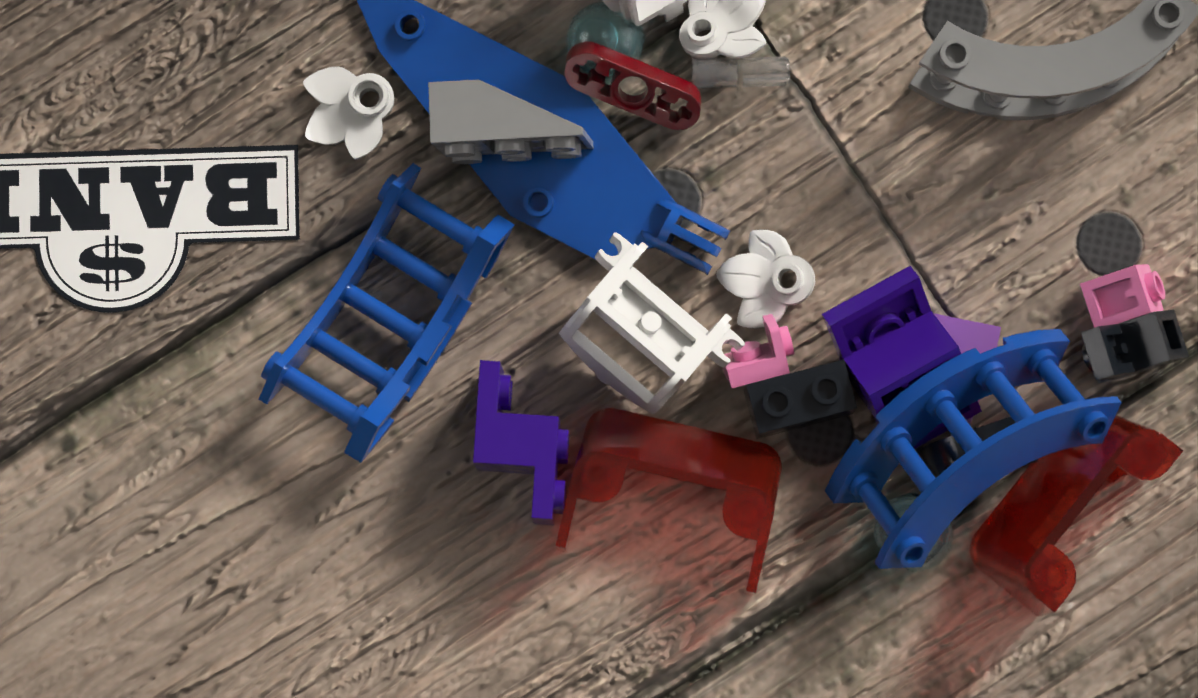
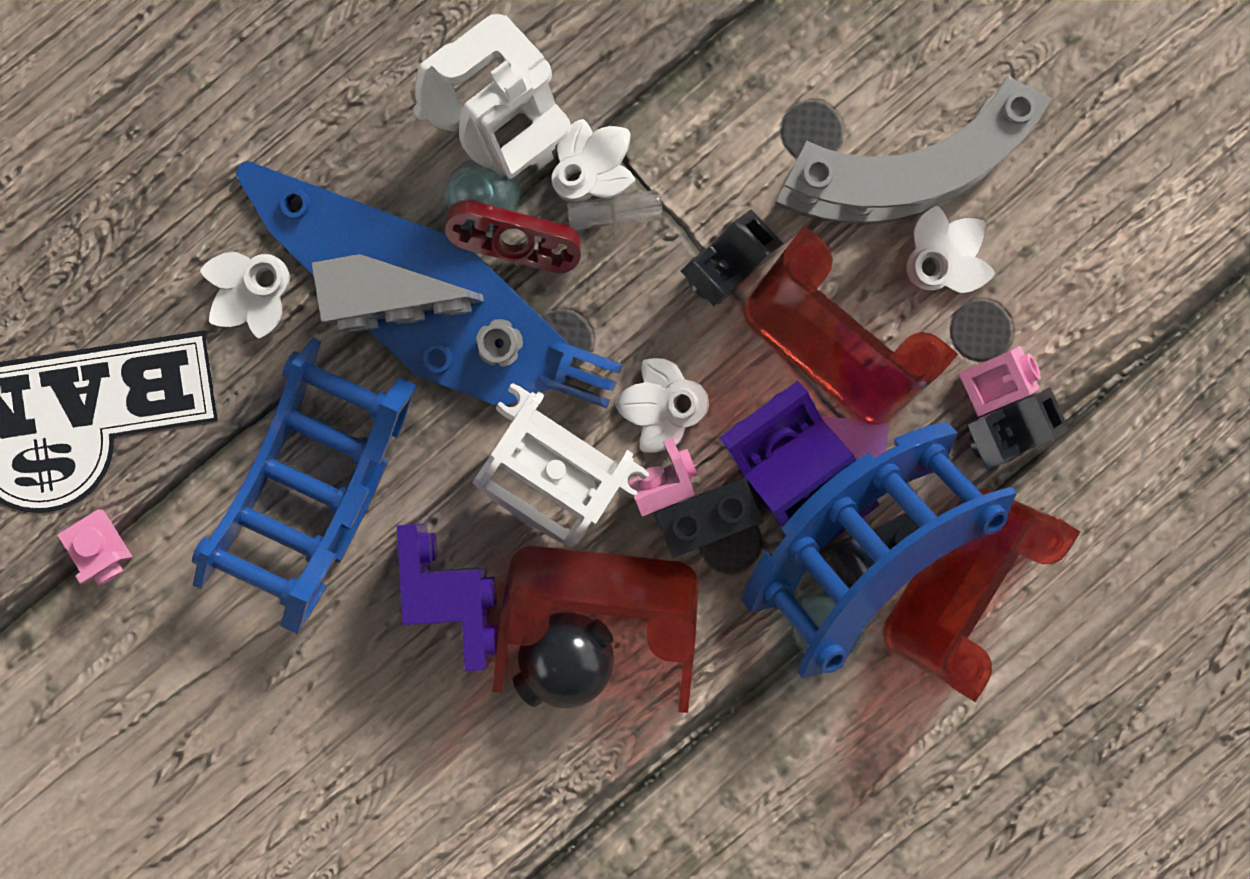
camera: 10 degrees left, 5 degrees up
(156, 355) = (95, 548): none -> bright pink bracket
(592, 188) = (486, 343): none -> light grey plate
(633, 532) = (567, 664): none -> black brick
(856, 135) = (731, 258): none -> black brick
(951, 236) = (831, 344): none -> clear red windscreen
(1089, 158) = (953, 251): none -> white plate

